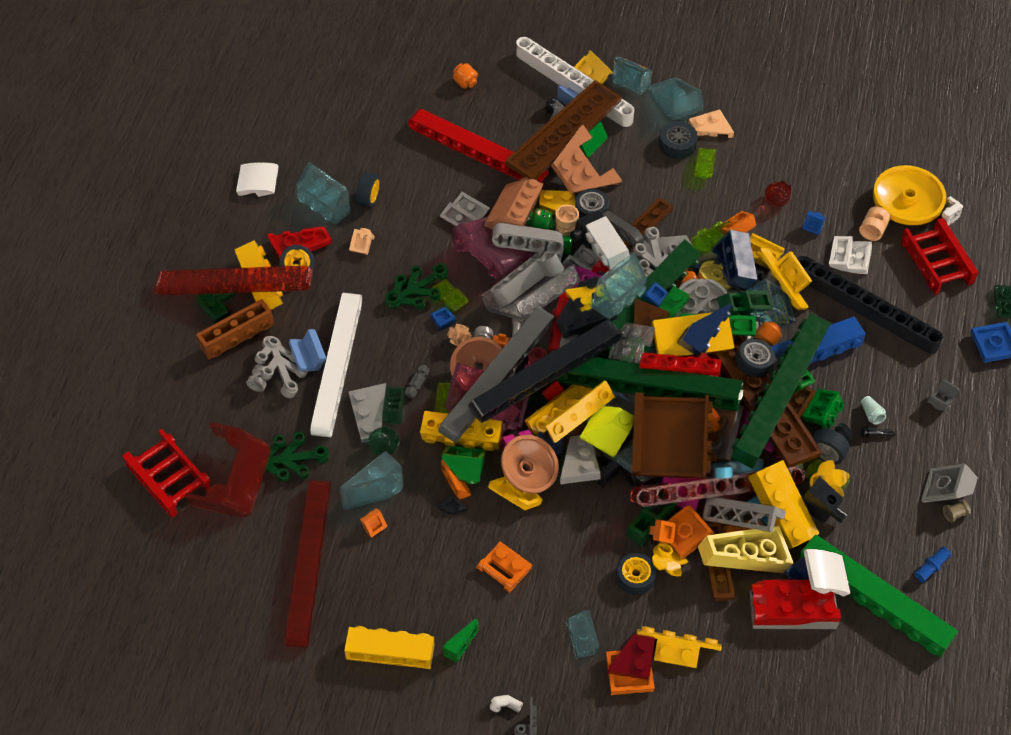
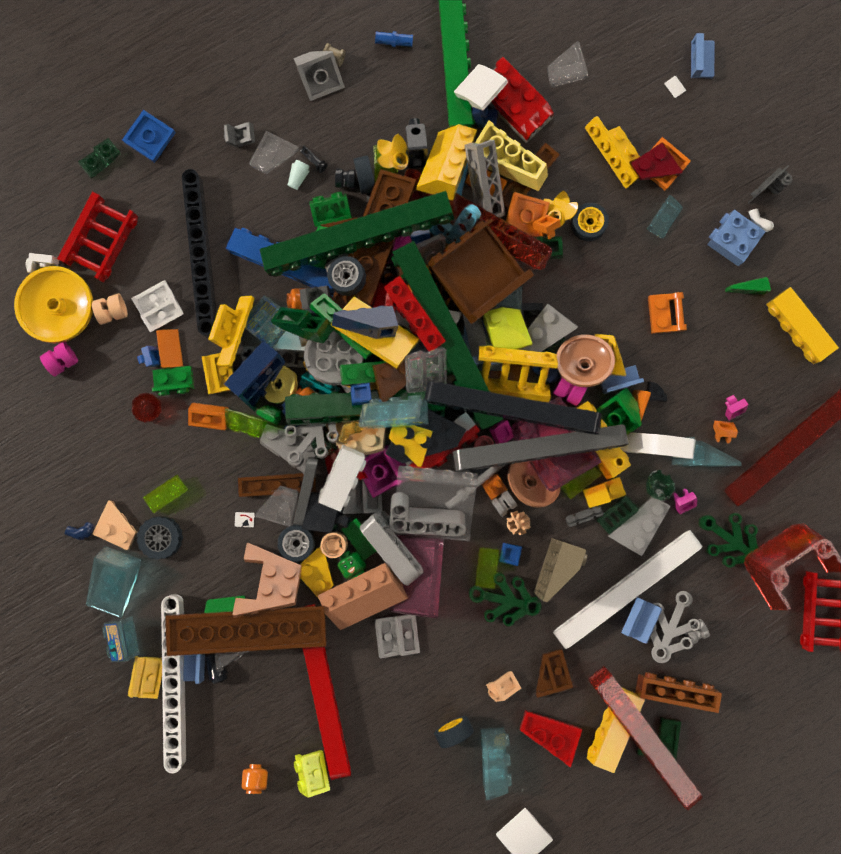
camera: 135 degrees left, 30 degrees up
(297, 253) = (568, 720): wheel -> none
(335, 275) = (553, 674): none -> reddish brown wing
(352, 449) = (686, 502): none -> dark pink tile
(382, 545) = (735, 407): none -> dark pink tile
(407, 320) = (558, 568): none -> dark tan slope
(417, 449) = (660, 445): none -> white slope
(418, 404) = (604, 492): none -> yellow slope
(432, 103) = (312, 773): none -> neon yellow bracket
(481, 494) = (616, 383): none -> medium blue panel
(512, 668) = (735, 237): none -> medium blue brick
(628, 211) = (279, 506): none -> clear wing
(640, 194) = (244, 519): none -> white sticker
(702, 248) = (270, 413): none -> green slope
(727, 104) = (81, 533): none -> dark blue arm
(763, 331) = (310, 294): none -> dark grey bracket
(783, 223) = (173, 379): none -> green bracket
(787, 677) = (568, 67): none -> clear wing
(810, 237) = (169, 348): none -> orange slope
(865, 172) = (52, 361): none -> dark pink wheel
(908, 407) = (272, 152): none -> clear wing

